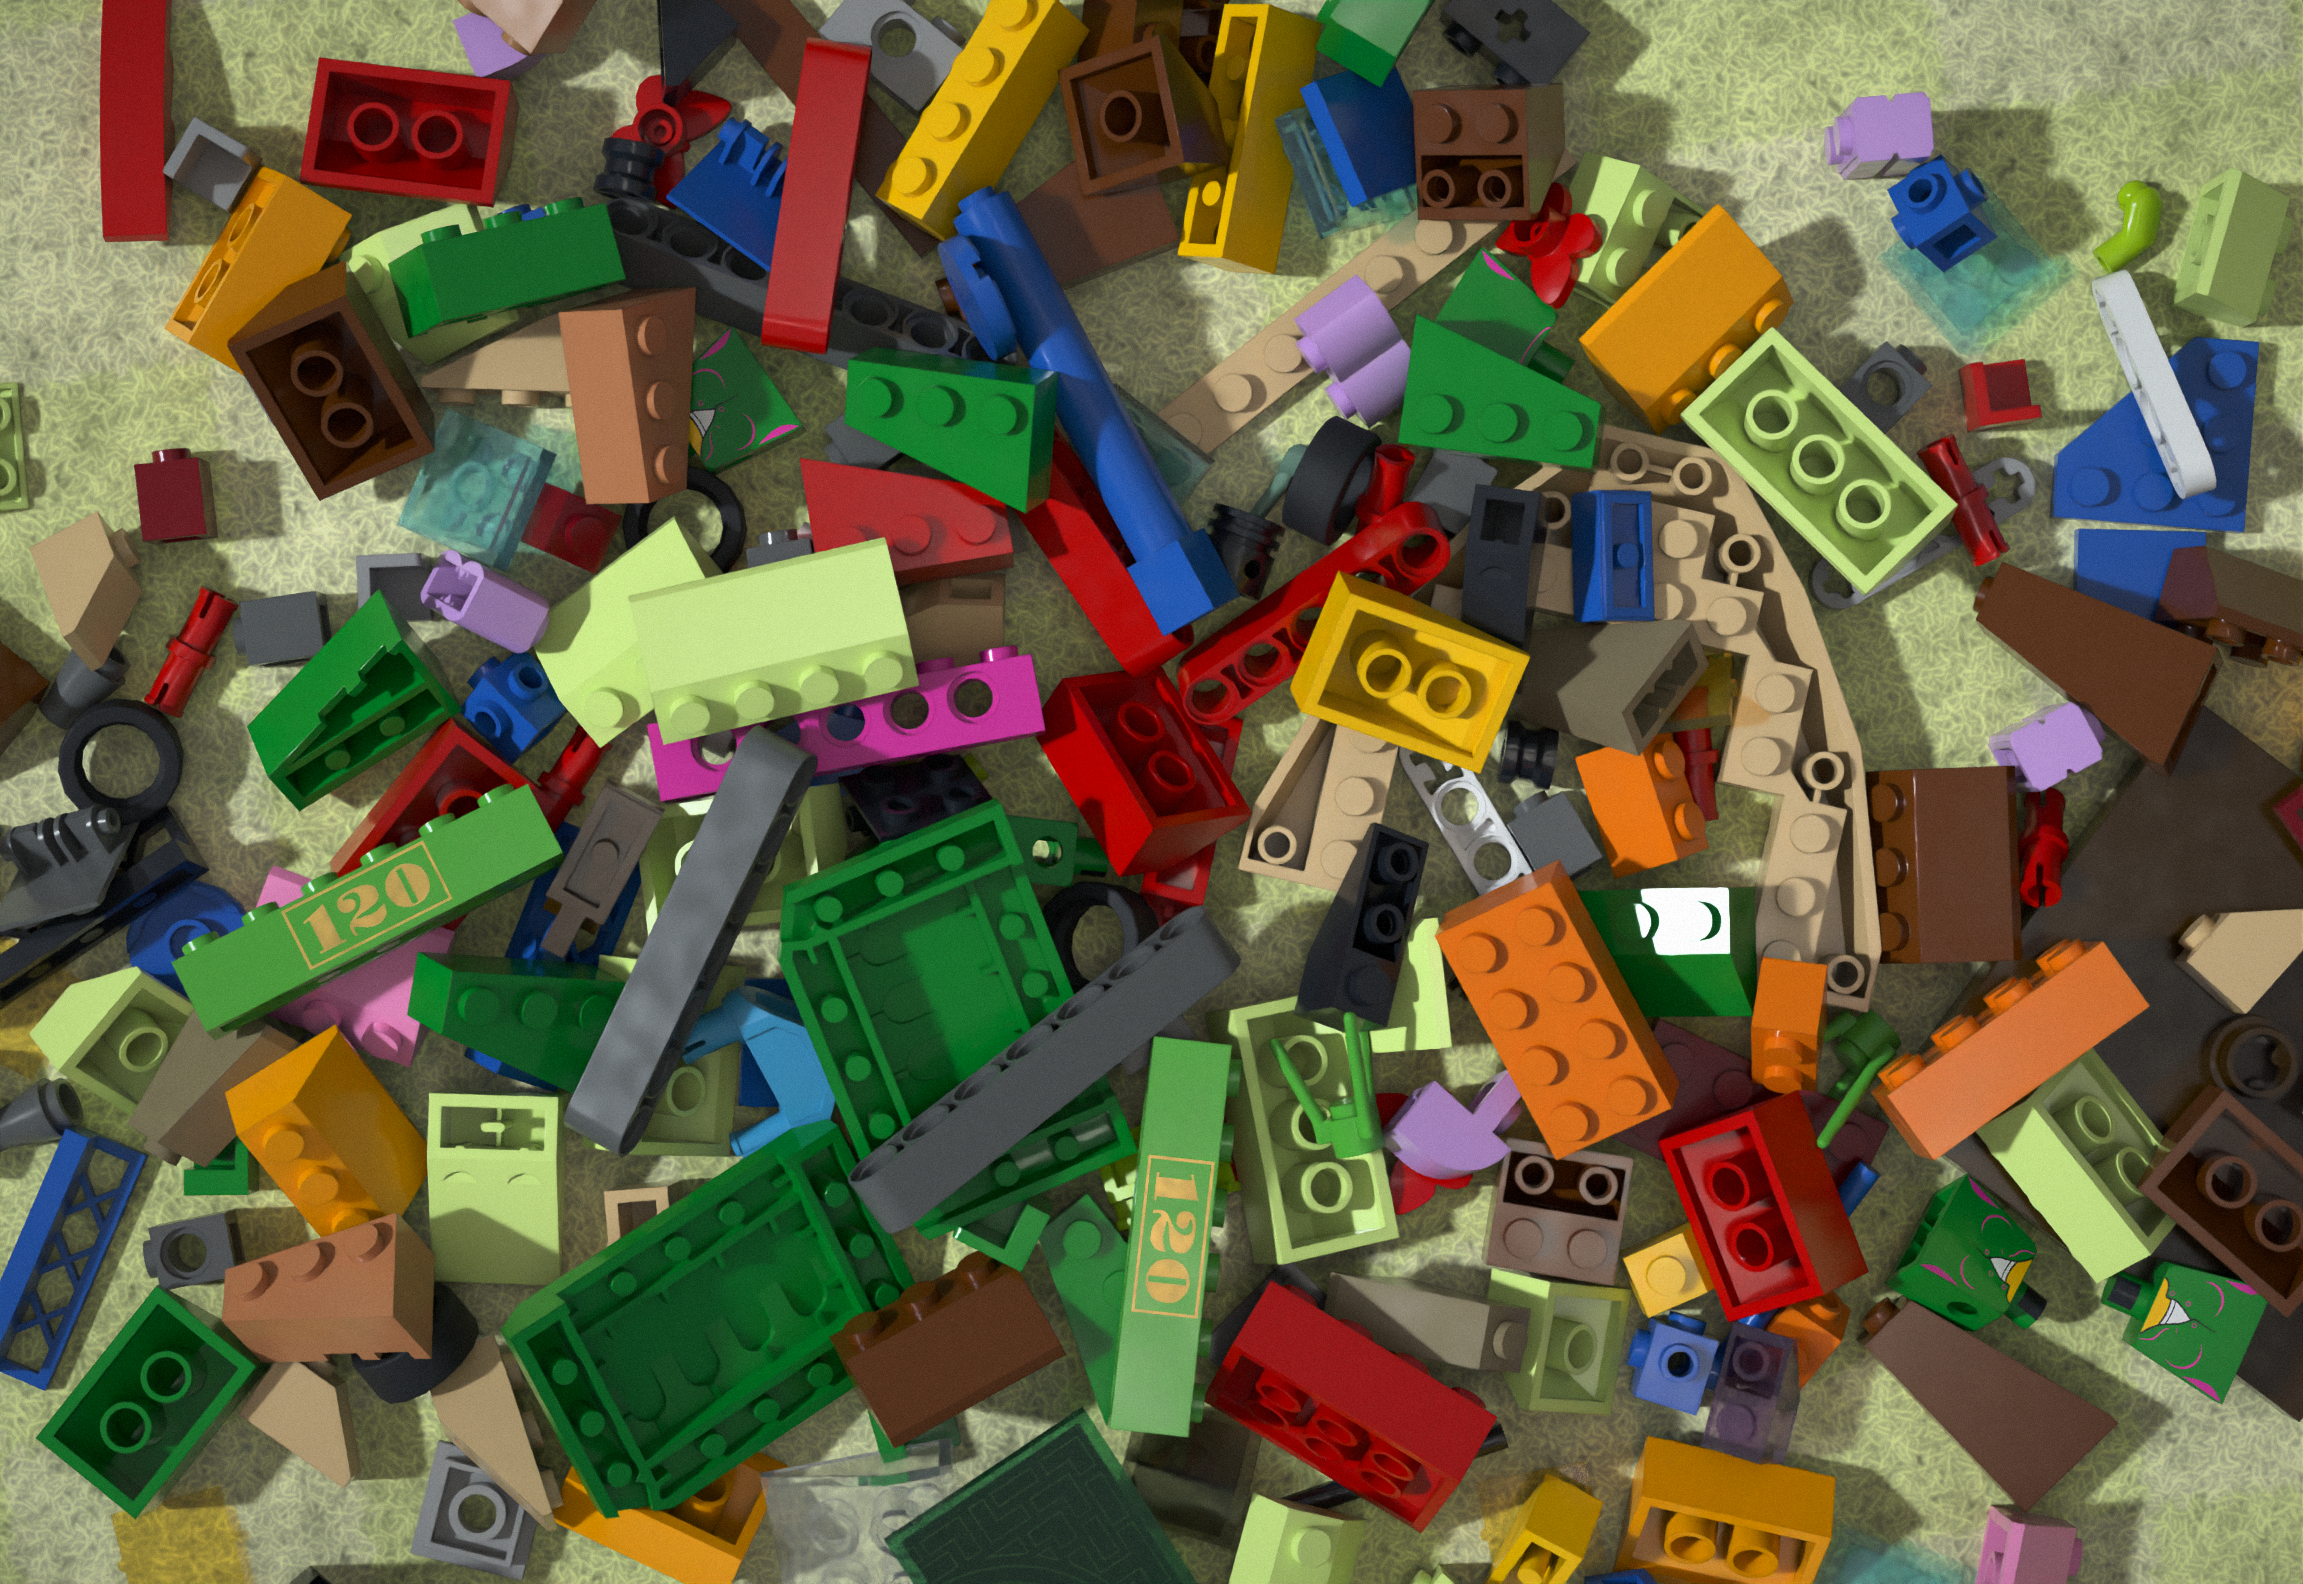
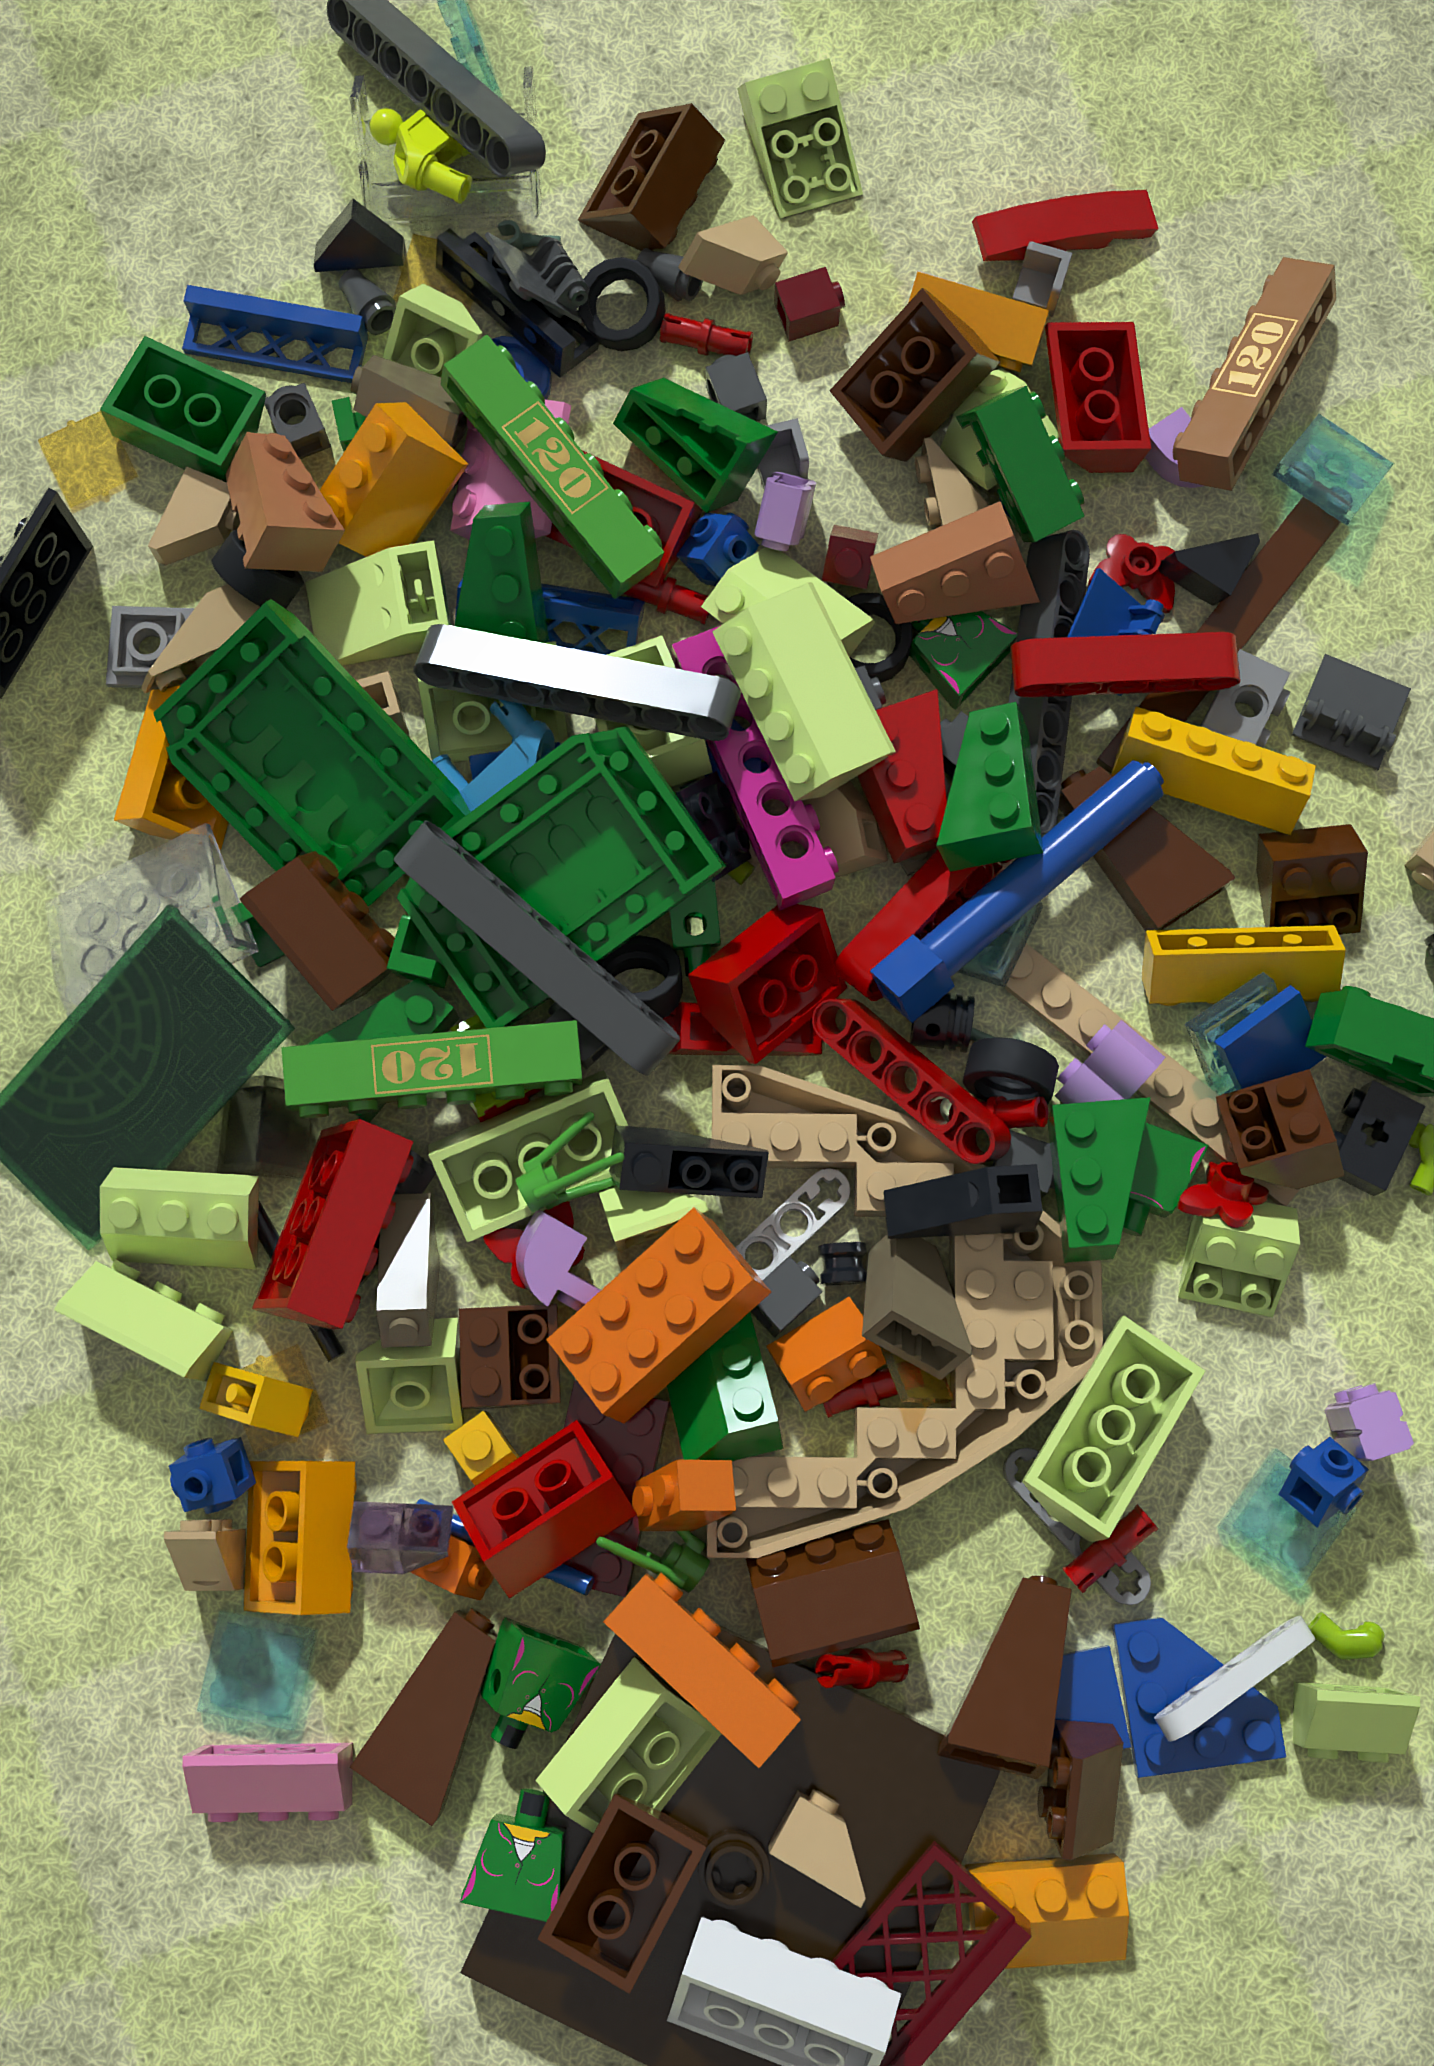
camera: 80 degrees right, 10 degrees down
(477, 489) = (861, 493): clear light blue plate -> none
(599, 864) = (617, 617): dark brown hinge -> none
(629, 170) = (1109, 545): black wheel -> none
(978, 297) = (1082, 786): blue tile -> none
(1140, 118) = (1238, 878): reddish brown slope -> none
(1407, 674) = (883, 1149): yellow slope -> none
(1612, 556) = (1005, 1286): blue slope -> none
(1678, 1386) = (395, 1467): blue brick -> none
(1686, 321) = (1195, 1305): light orange slope -> none
(1903, 368) = (1199, 1467): dark grey brick -> none
(1997, 395) = (1194, 1560): red panel -> none
(2049, 745) = (940, 1655): lavender brick -> none

